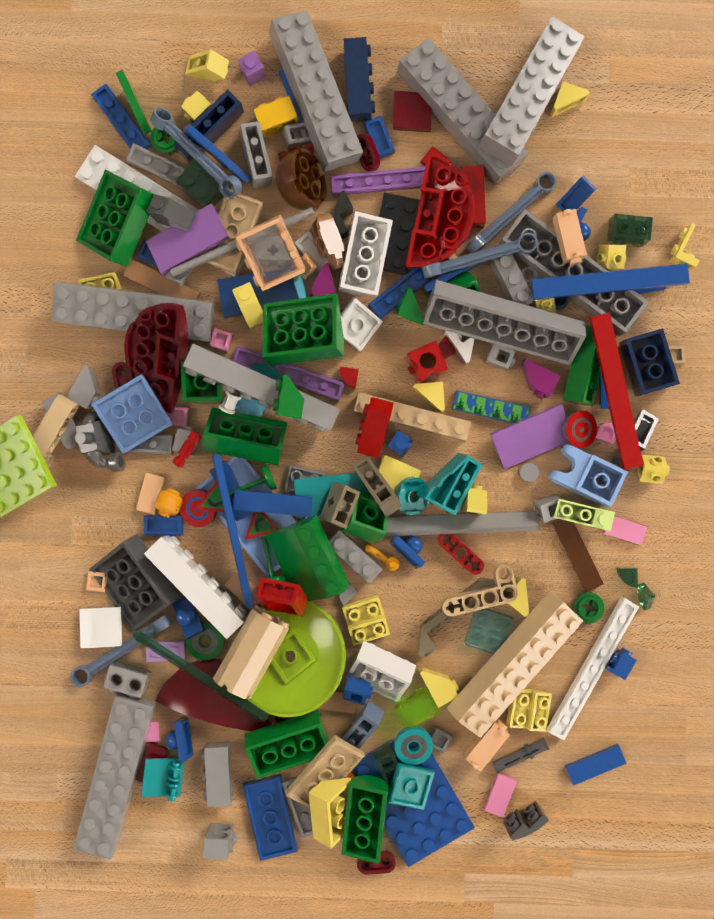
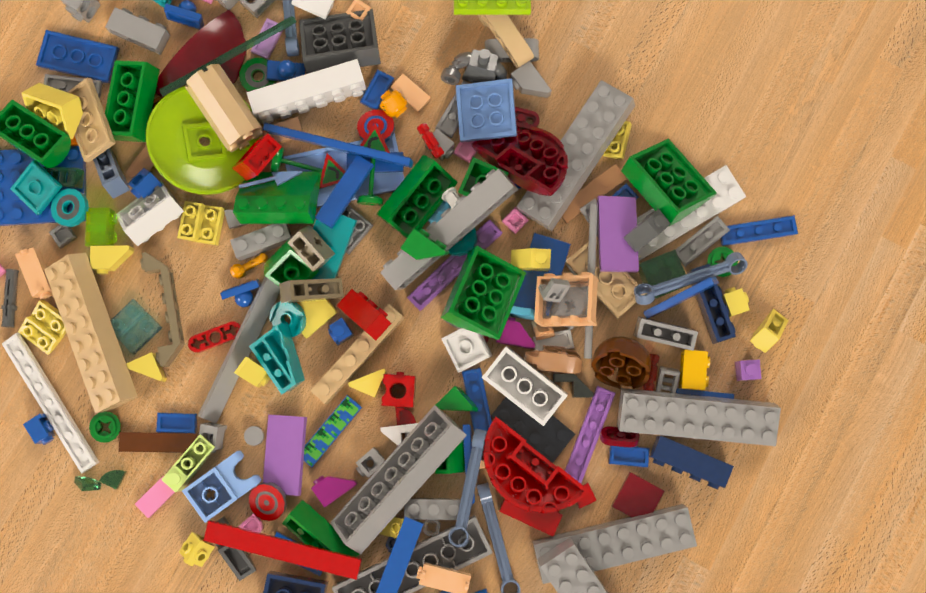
camera: 120 degrees right, 5 degrees down
(134, 102) = (764, 248): green tile -> none
(267, 265) = (554, 290): none -> light grey bracket
(288, 568) = (279, 177): none -> light blue piece
(349, 376) = (424, 317): red tile -> none
(478, 594) = (169, 330): tan beam -> none
(552, 546) = (176, 423): none -> blue tile

